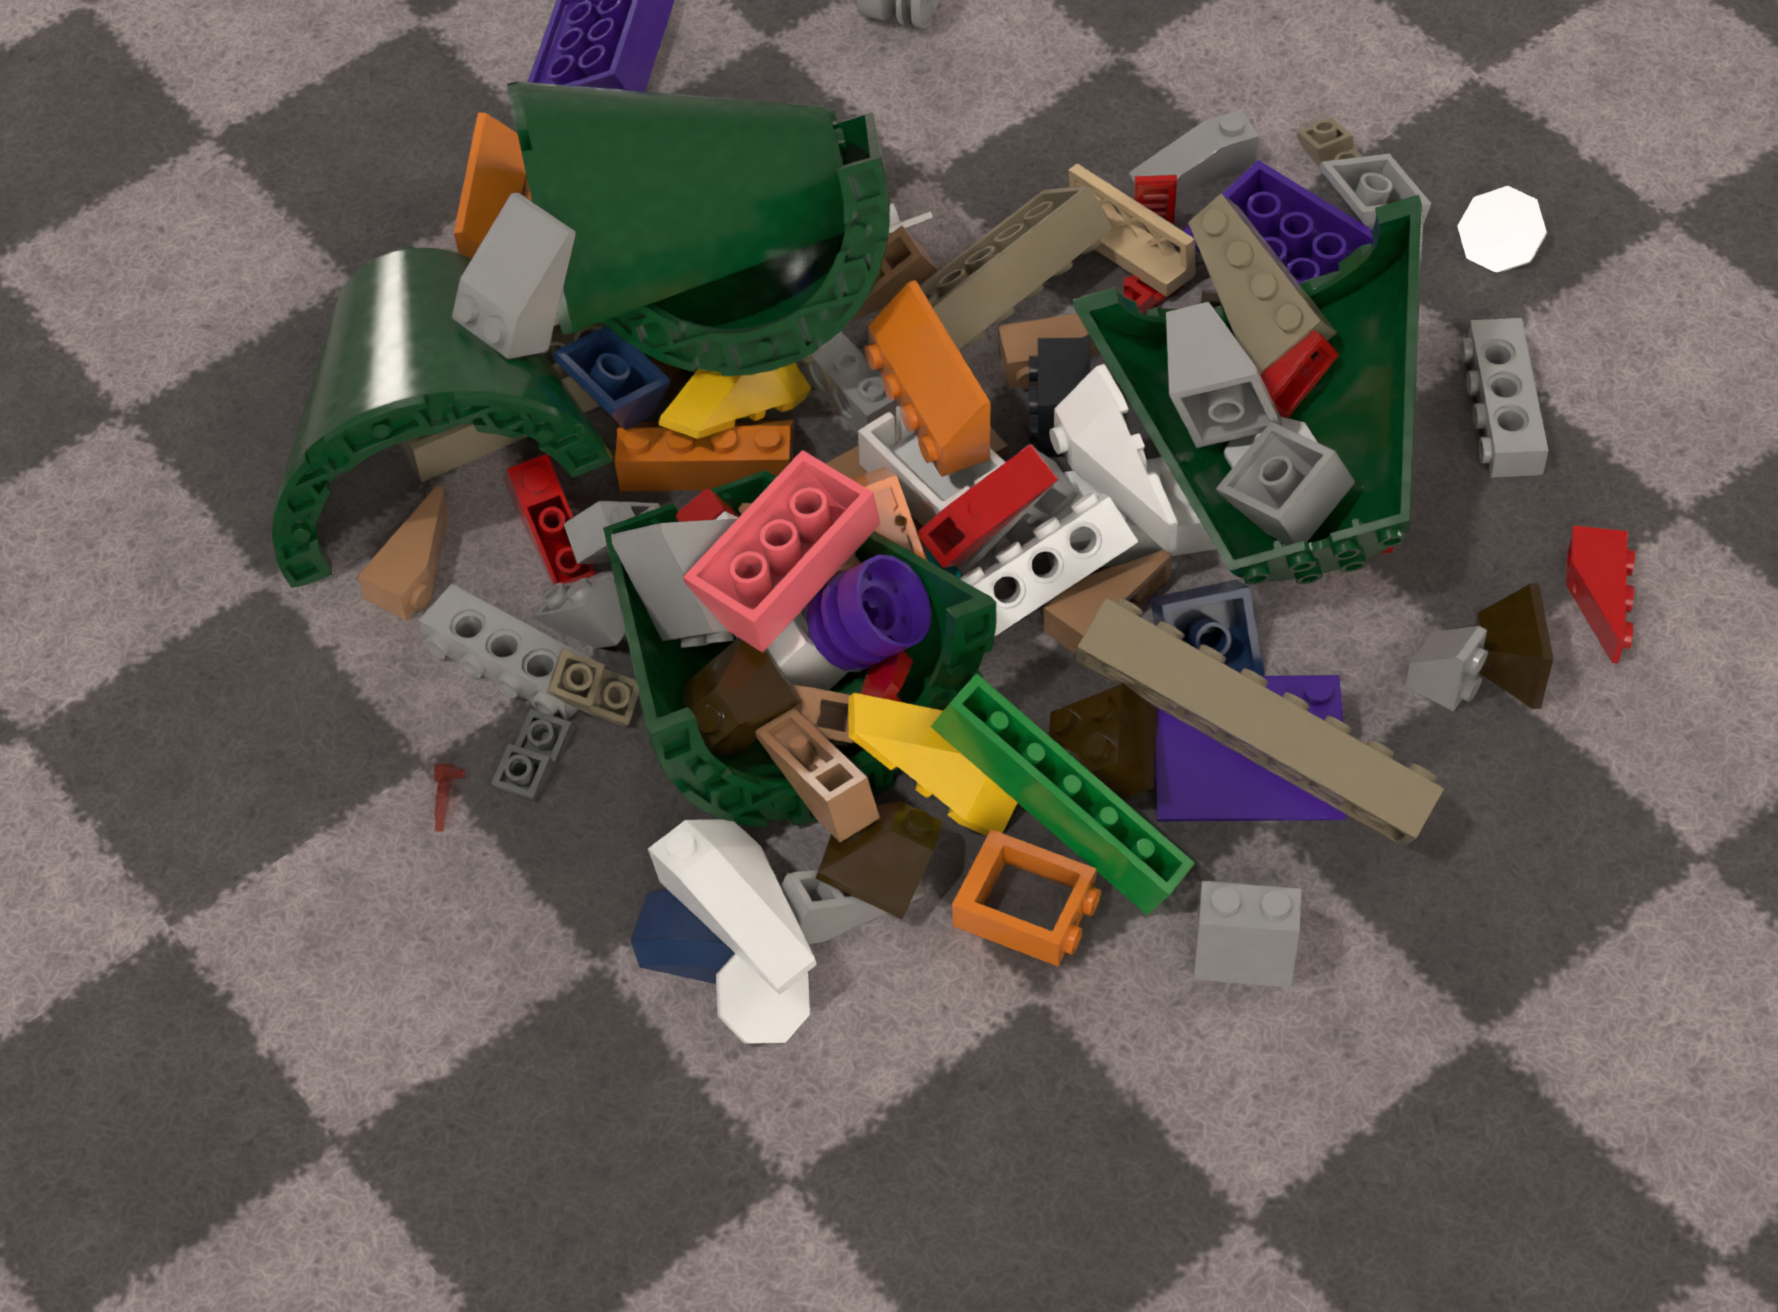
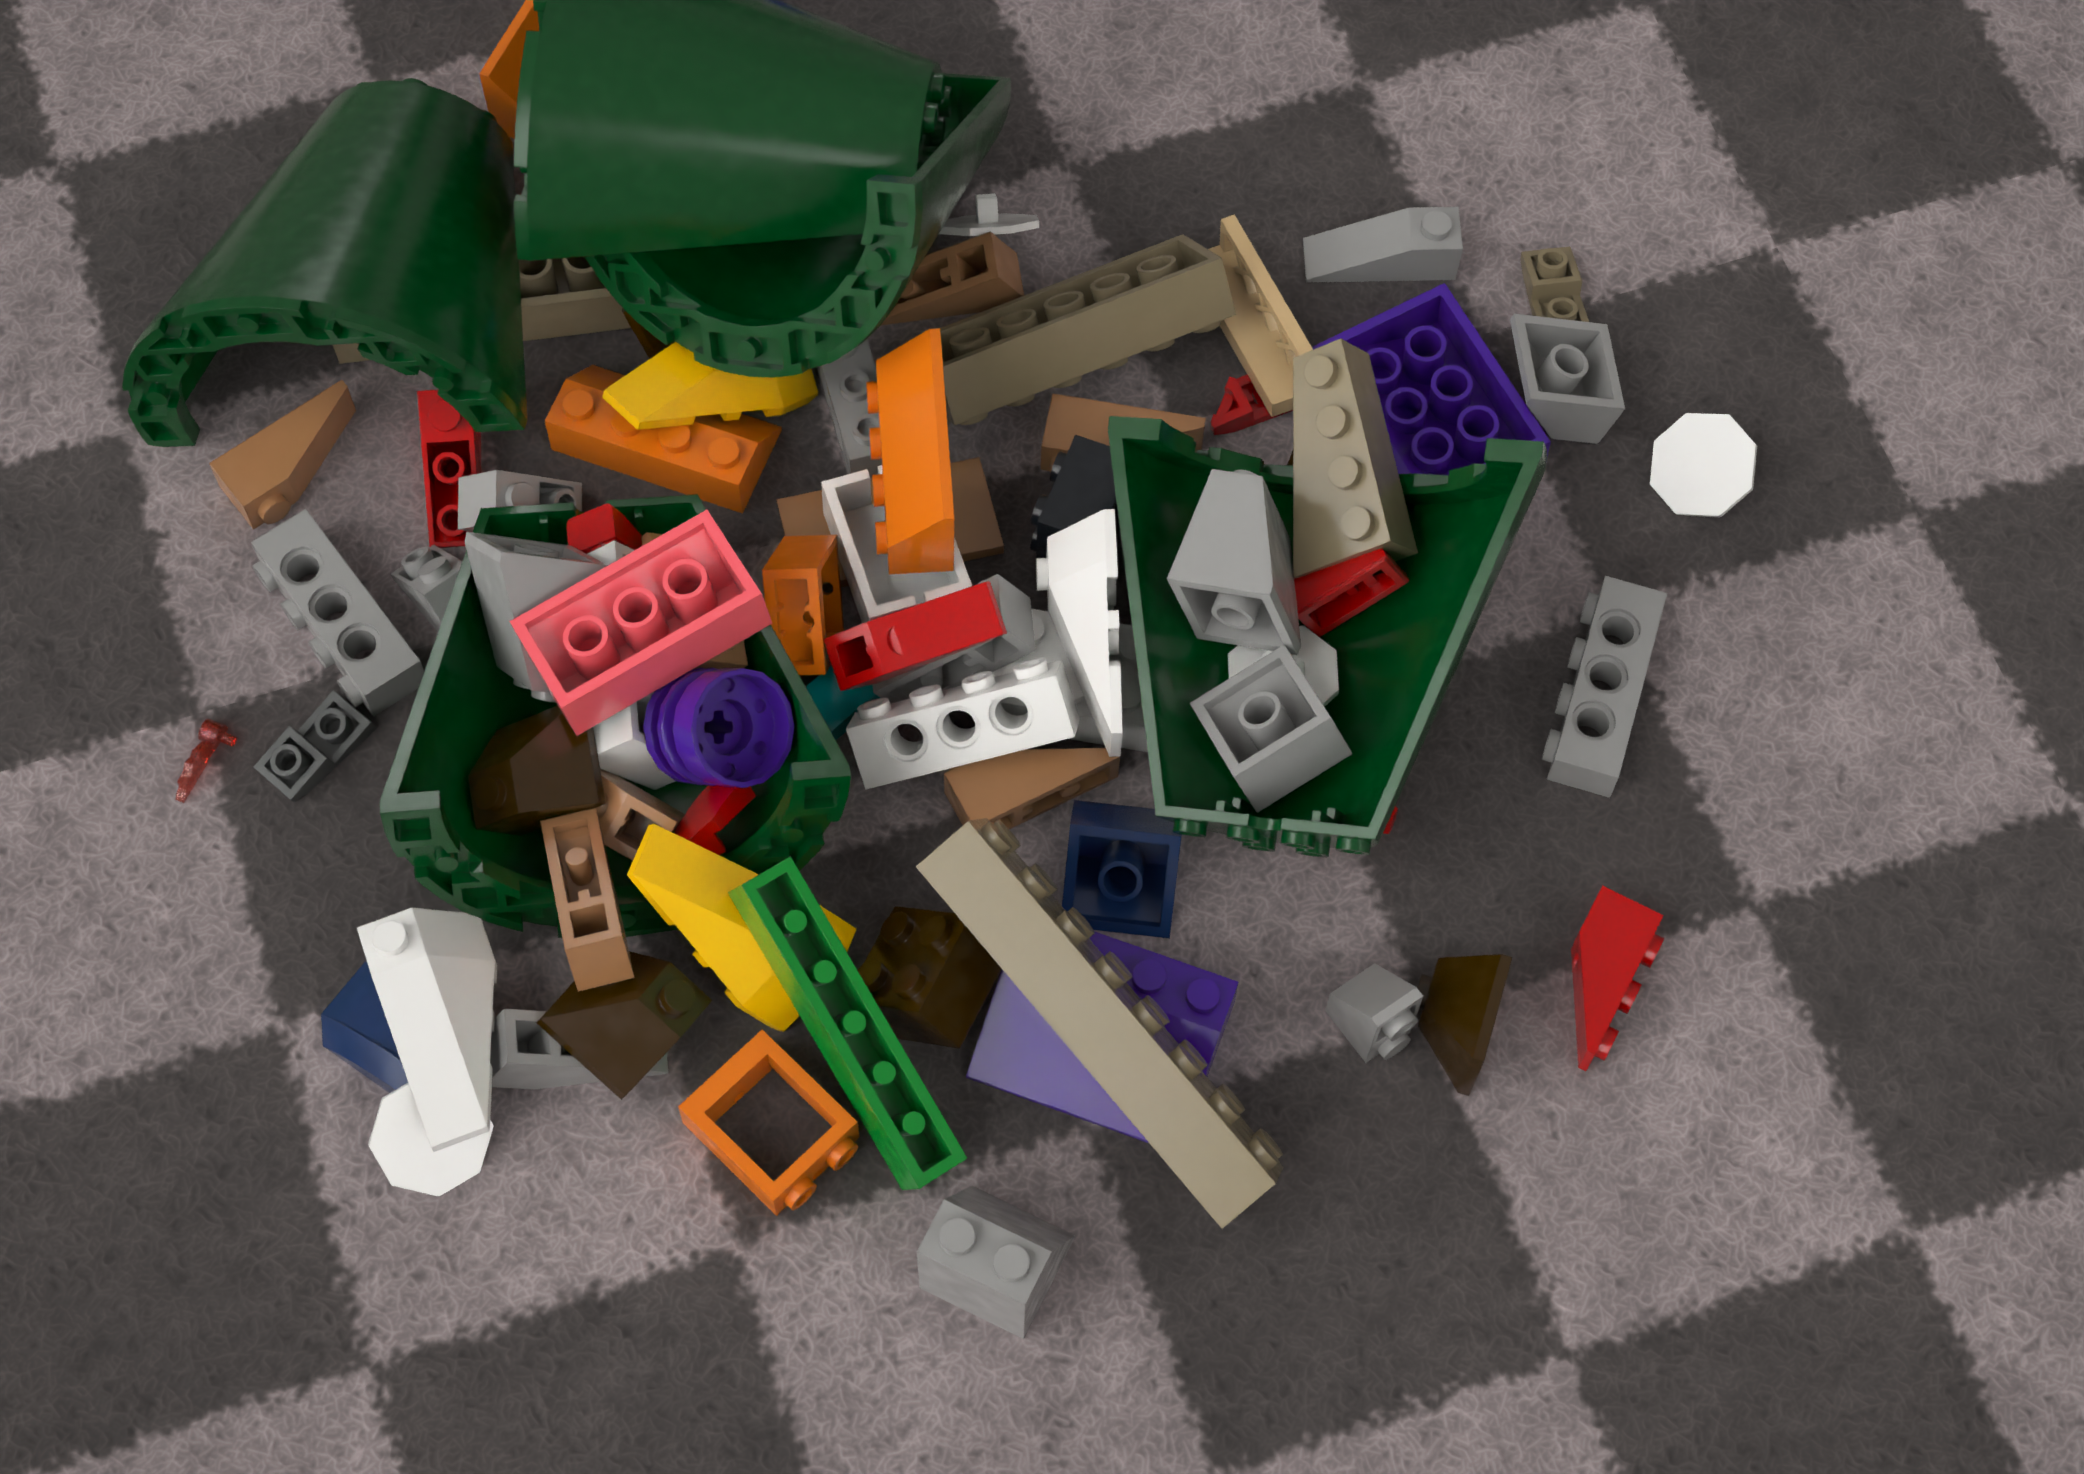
camera: 15 degrees right, 10 degrees up
(516, 280) = (473, 184): light grey slope -> none
(592, 688) = (385, 683): dark tan slope -> none
(614, 375) = (569, 321): dark blue slope -> none
(1157, 195) = (1307, 296): red slope -> none

